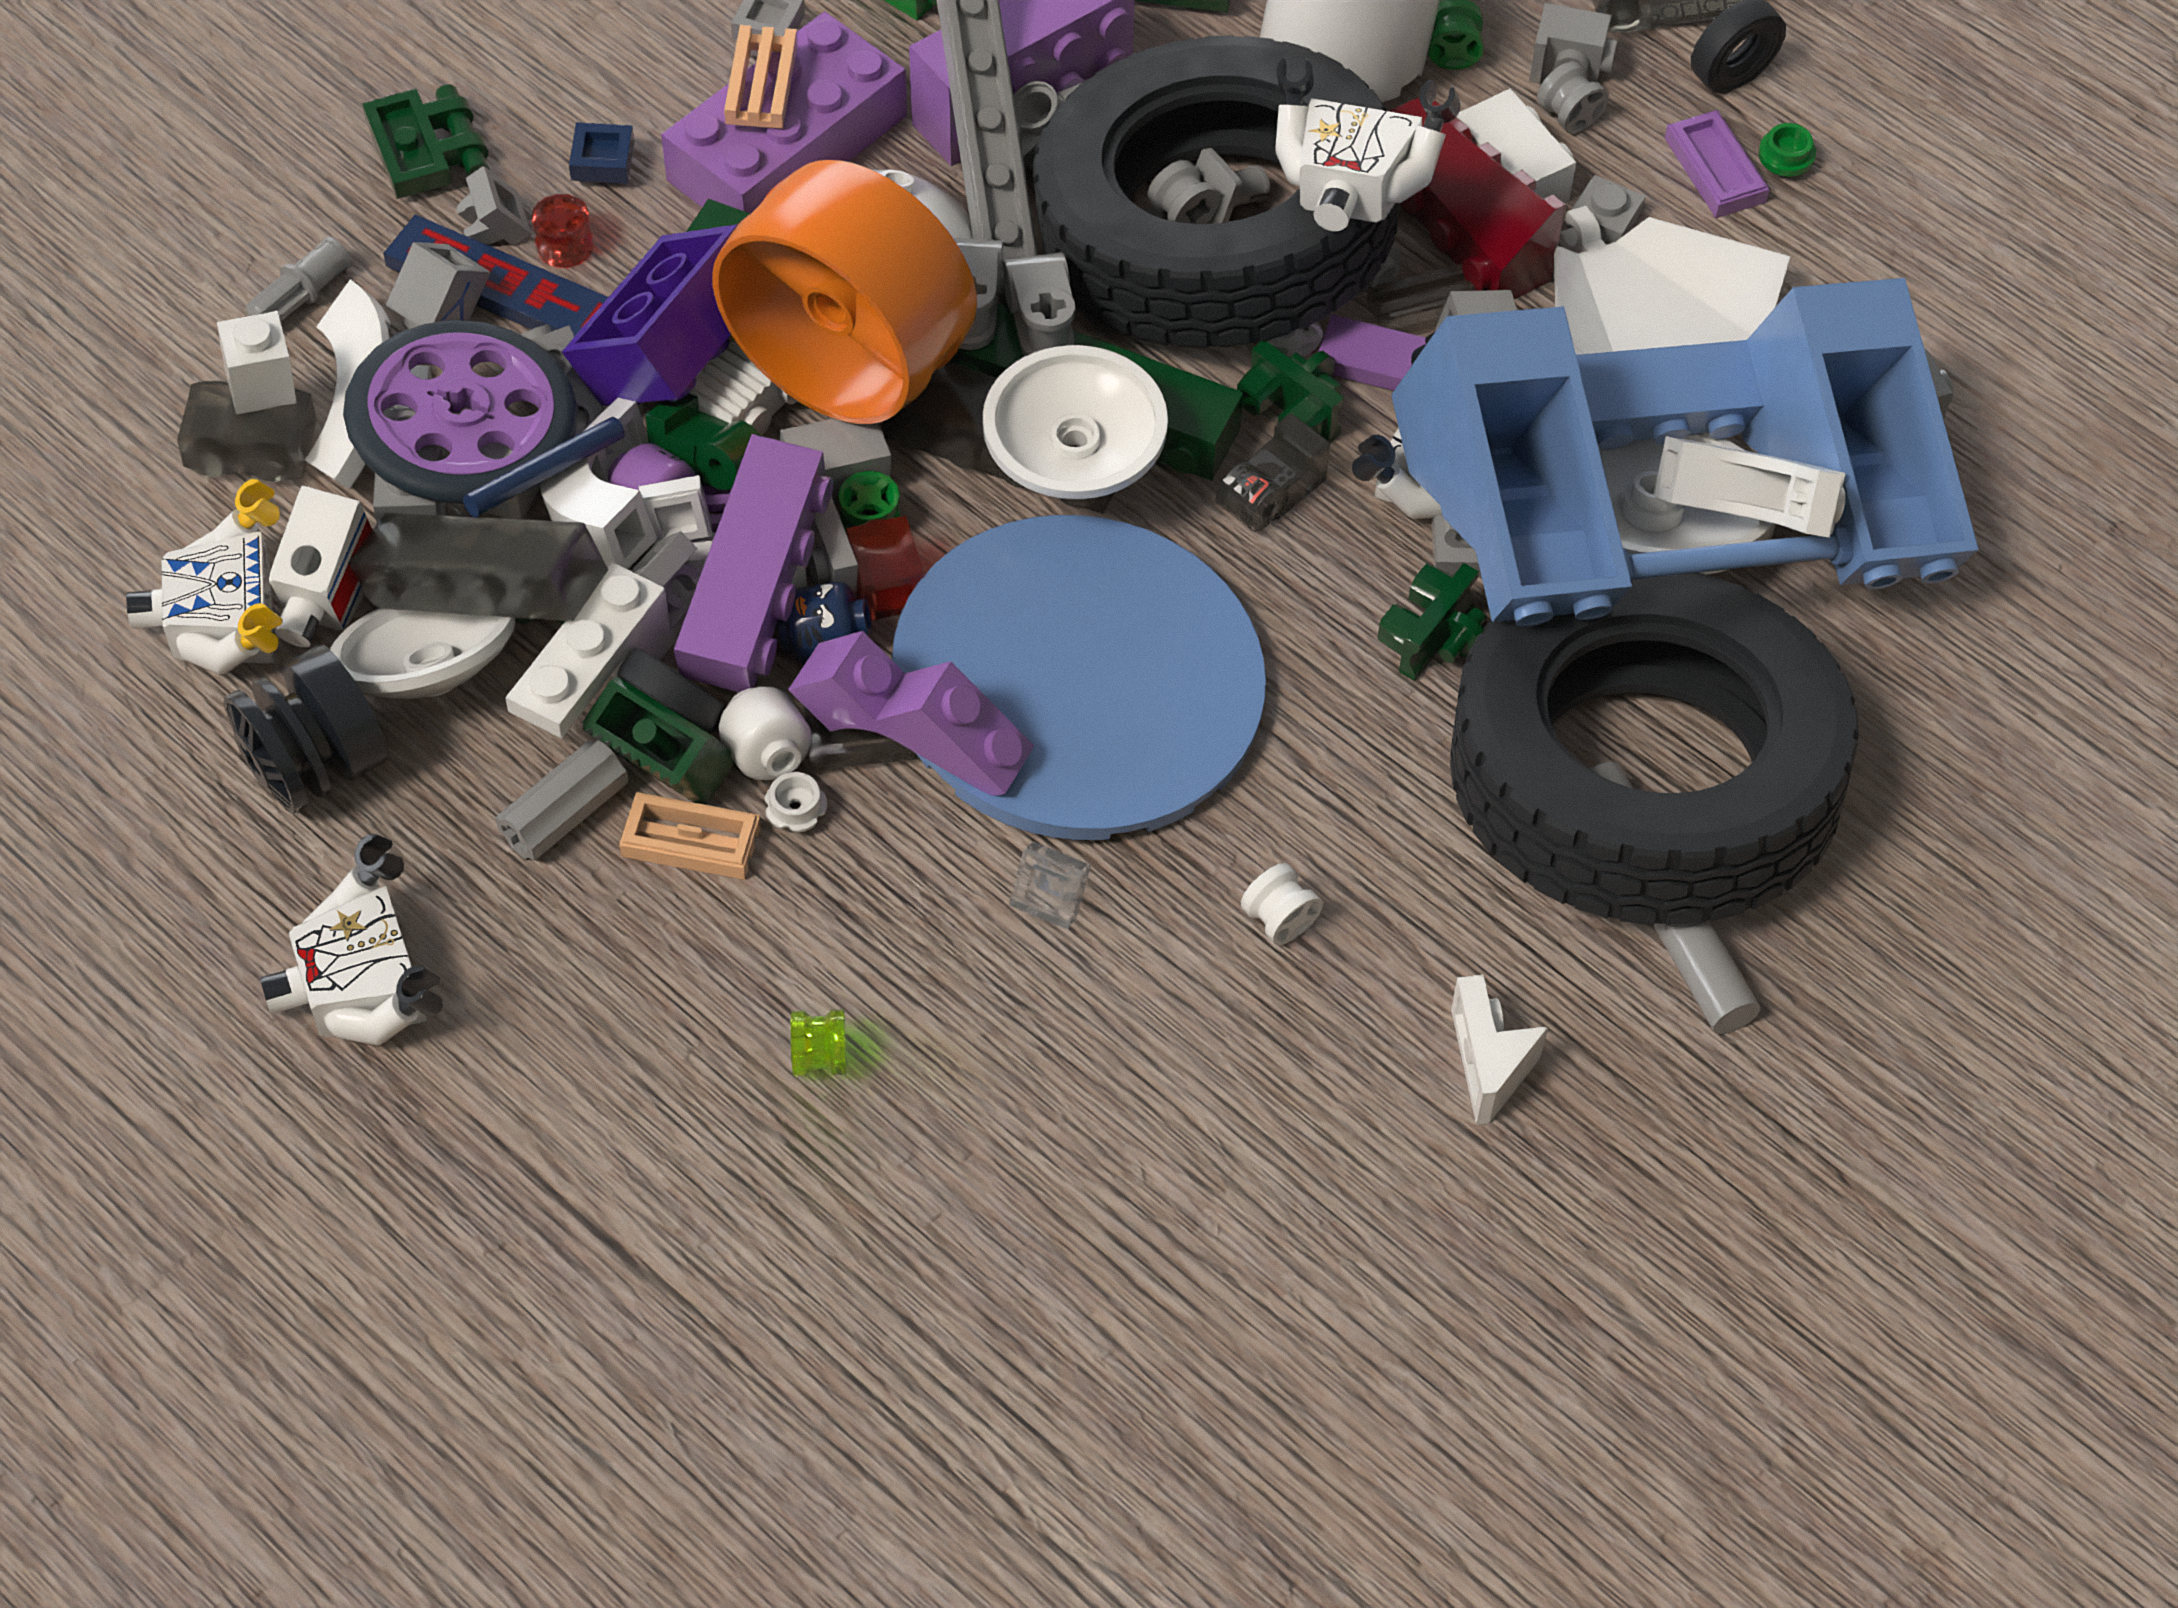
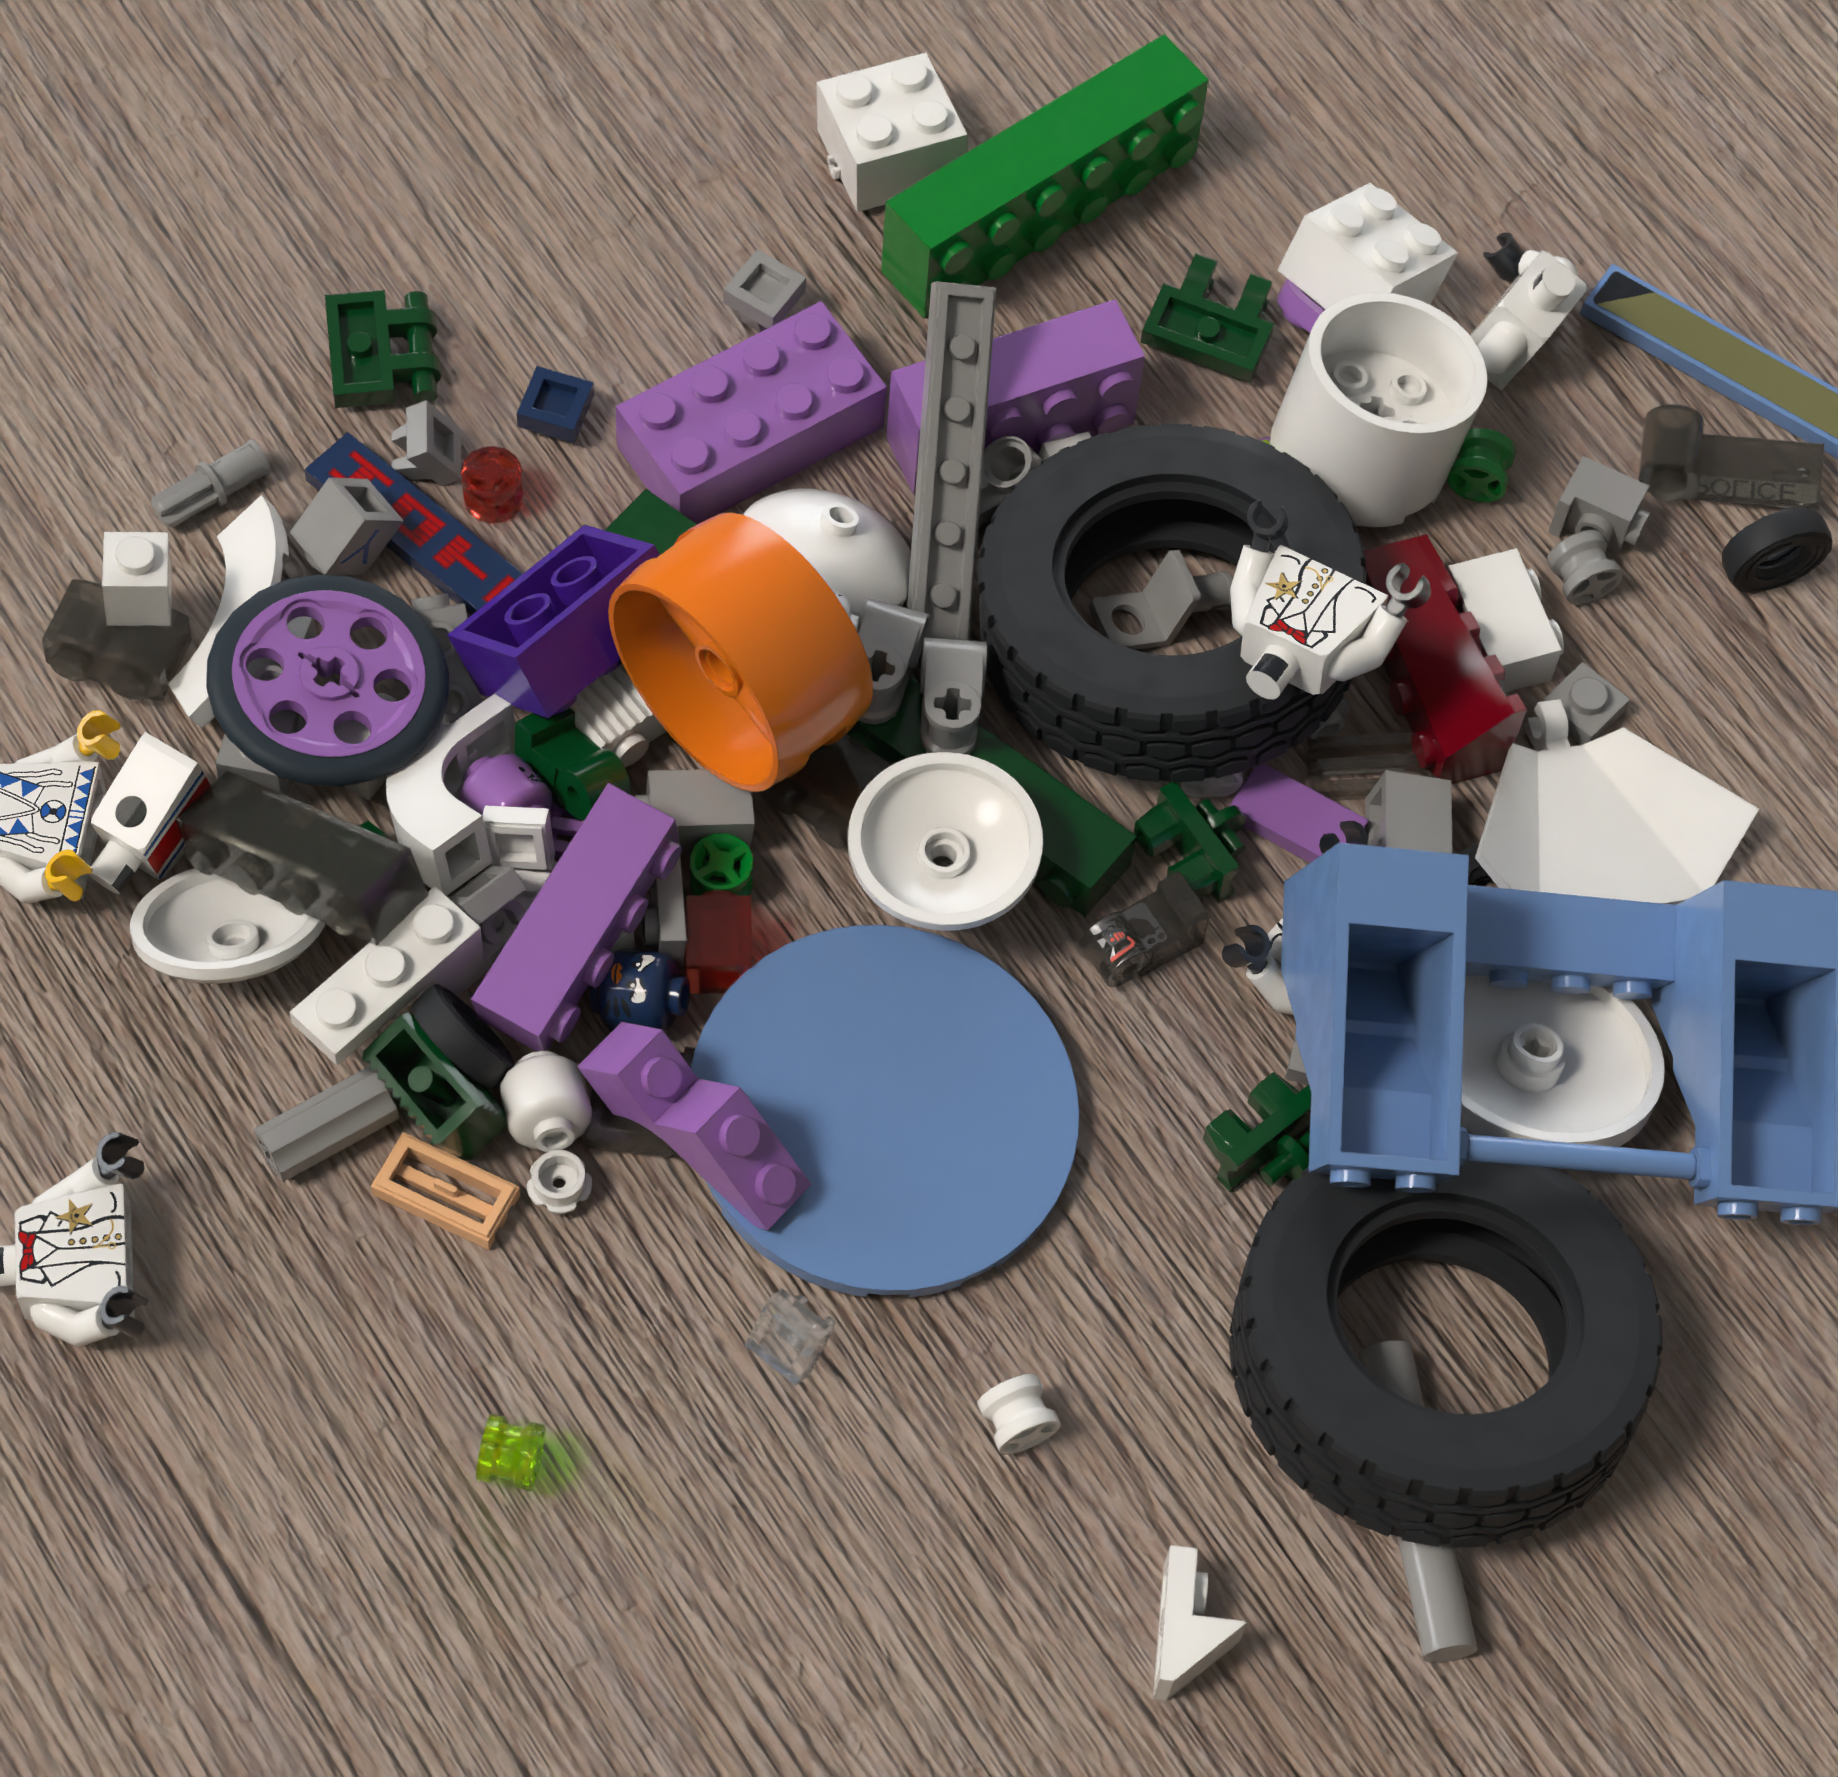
camera: 10 degrees right, 5 degrees up
(296, 734) = (87, 992): black wheel -> none
(543, 467) = (394, 763): dark blue bar -> none
(765, 44) = (747, 329): light nougat tile -> none
(1183, 195) = (1138, 596): light grey wheel -> none
(1716, 164) = (1718, 675): medium lavender tile -> none
(1751, 485) = (1628, 1076): white arch -> none
(1787, 150) = (1797, 679): green plate -> none

